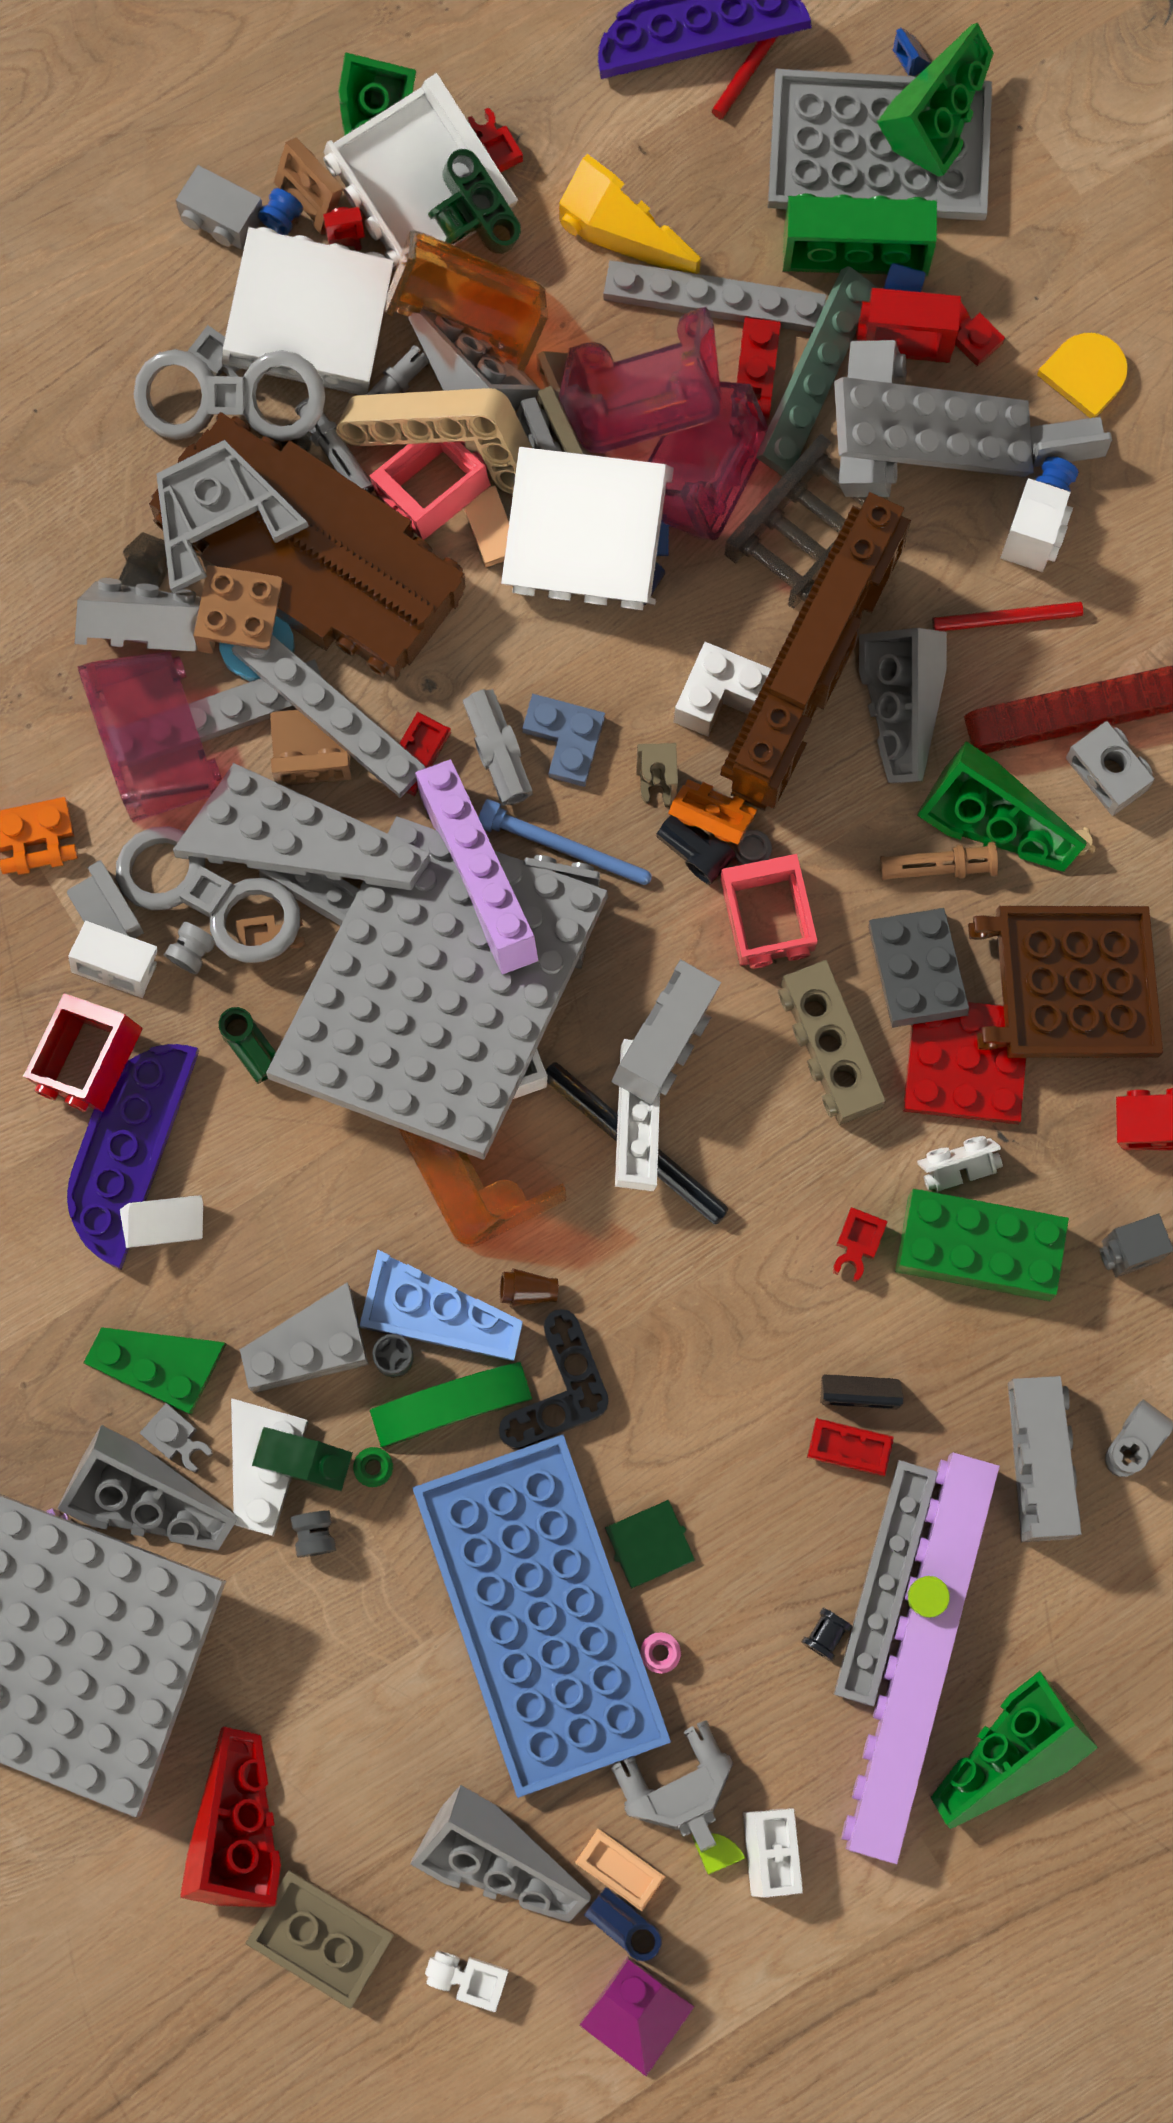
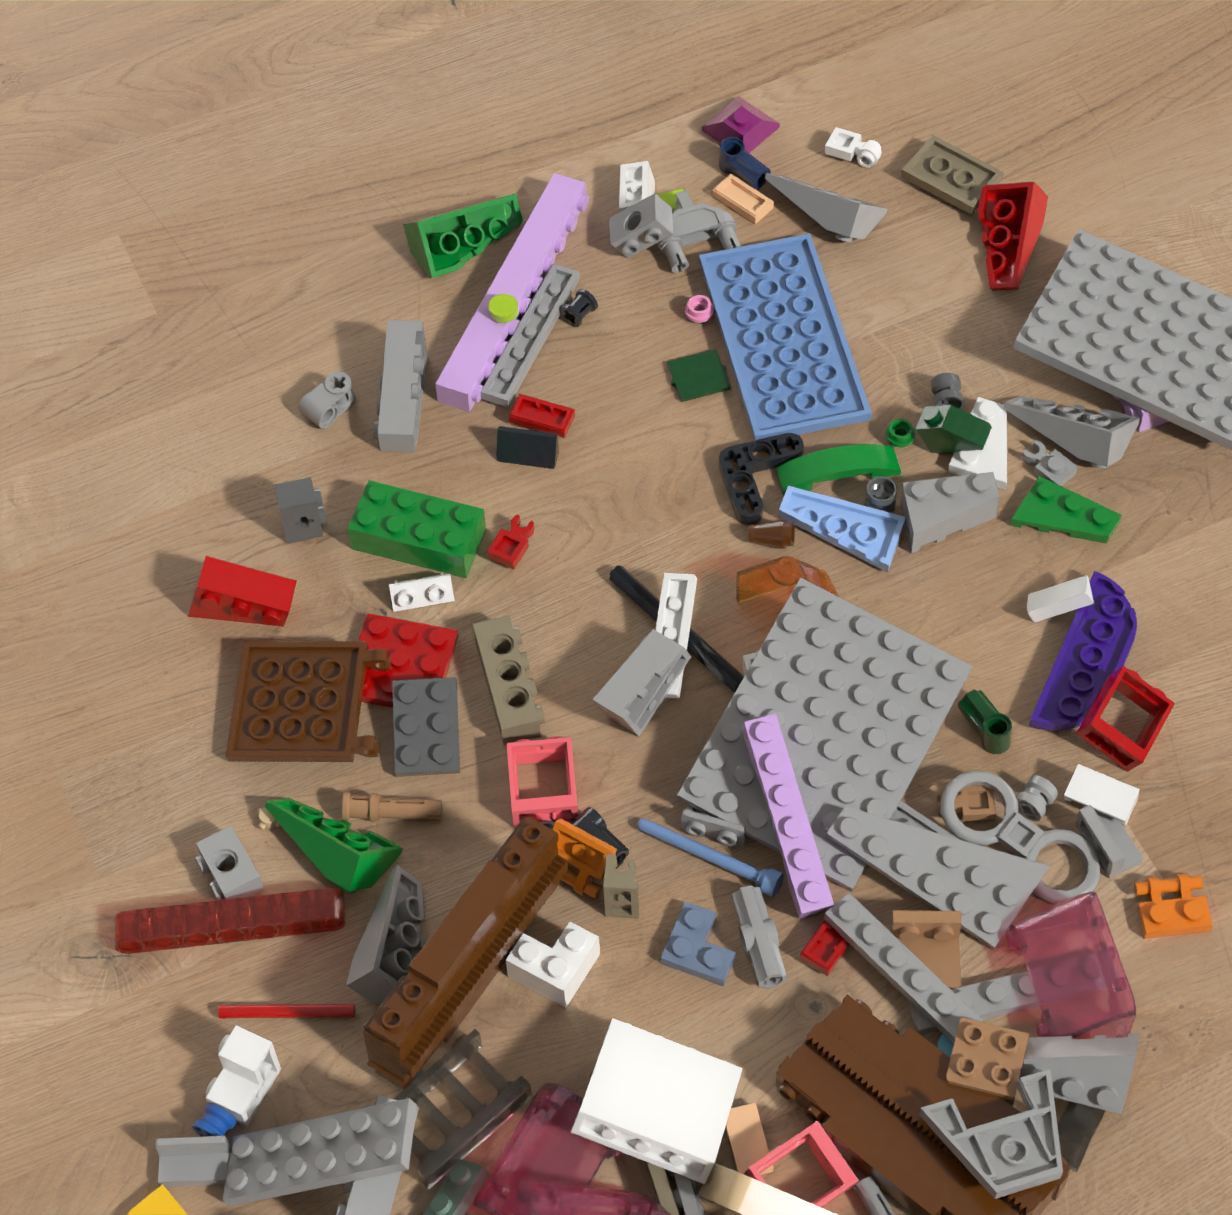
camera: 170 degrees left, 20 degrees down
(757, 1773) = (641, 226): none -> light grey brick

